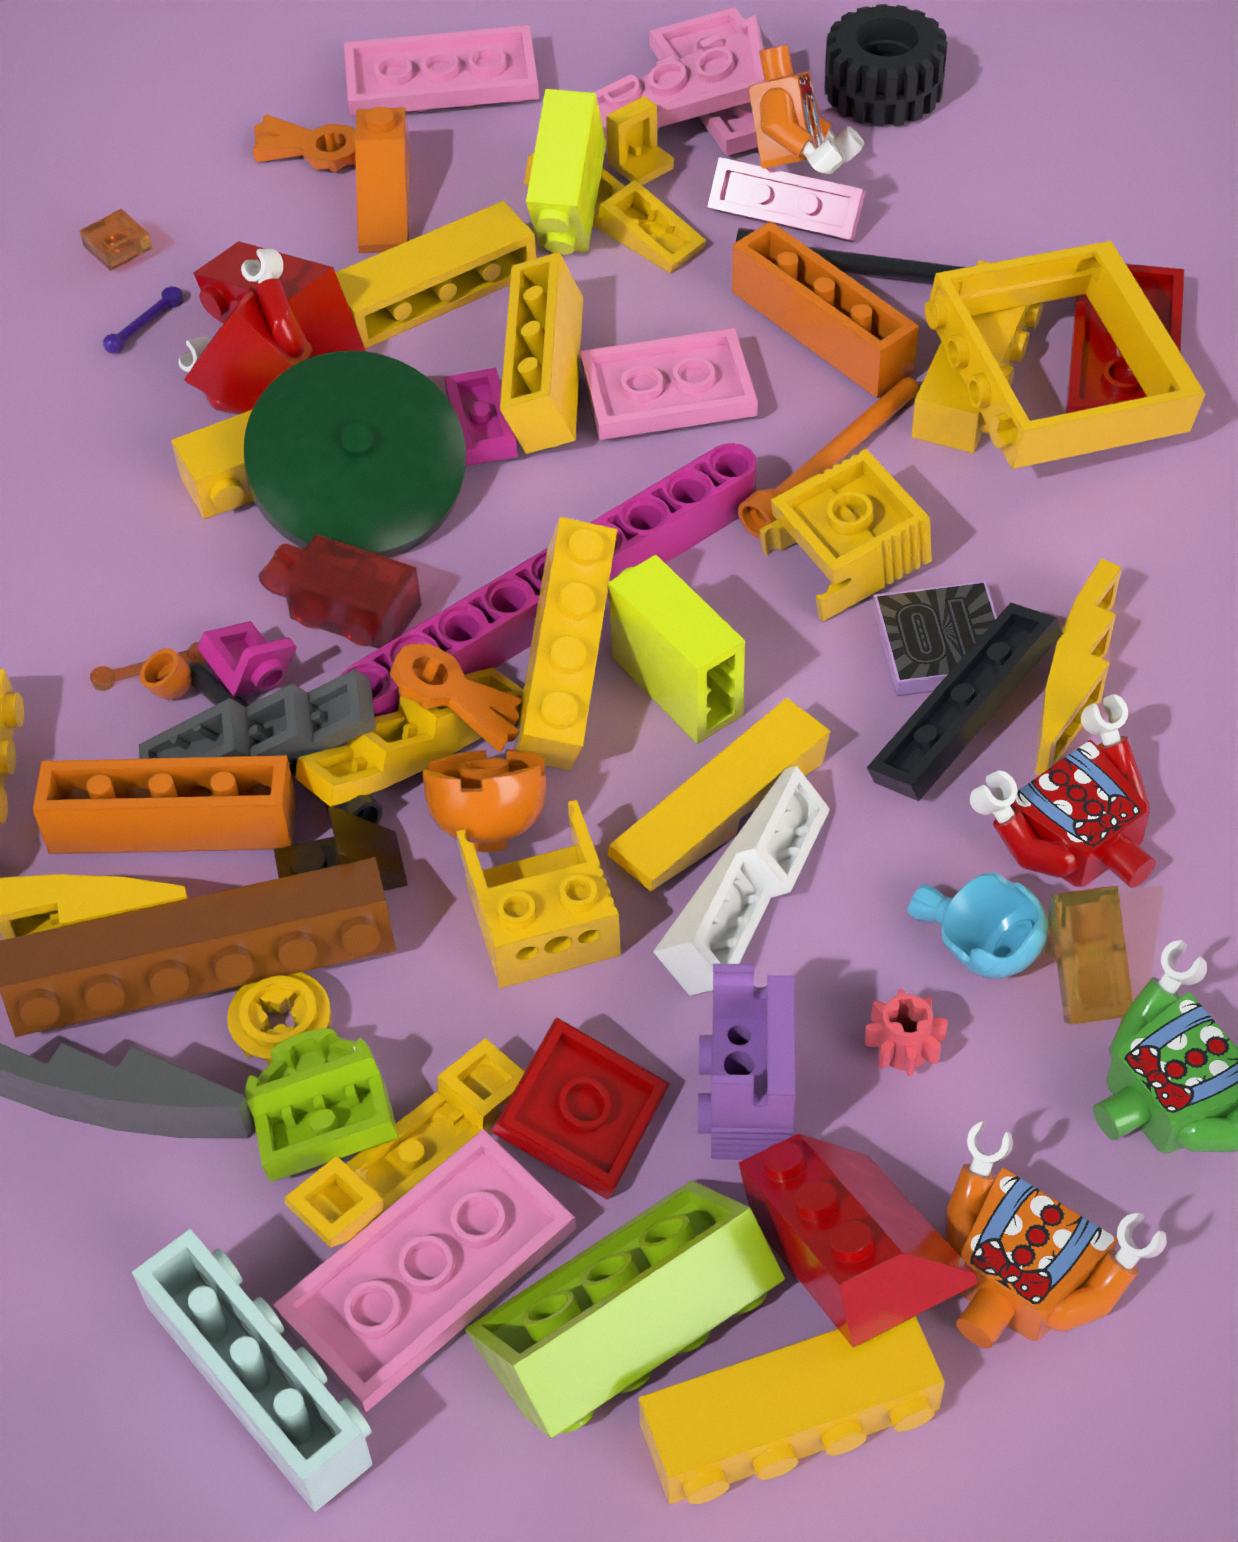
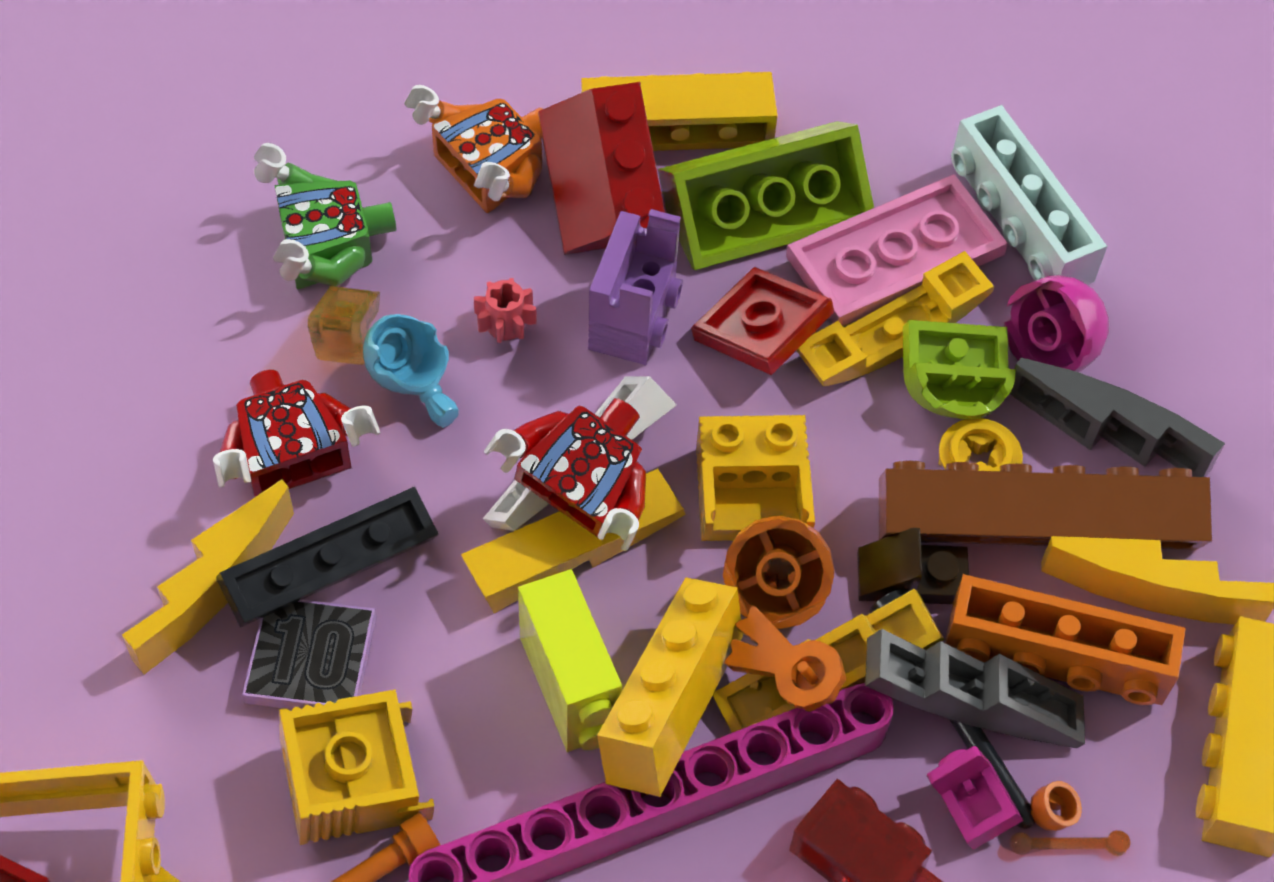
camera: 170 degrees left, 5 degrees up
(188, 1188) = (1057, 322): none -> dark pink cylinder
(728, 797) = (581, 466): none -> torso

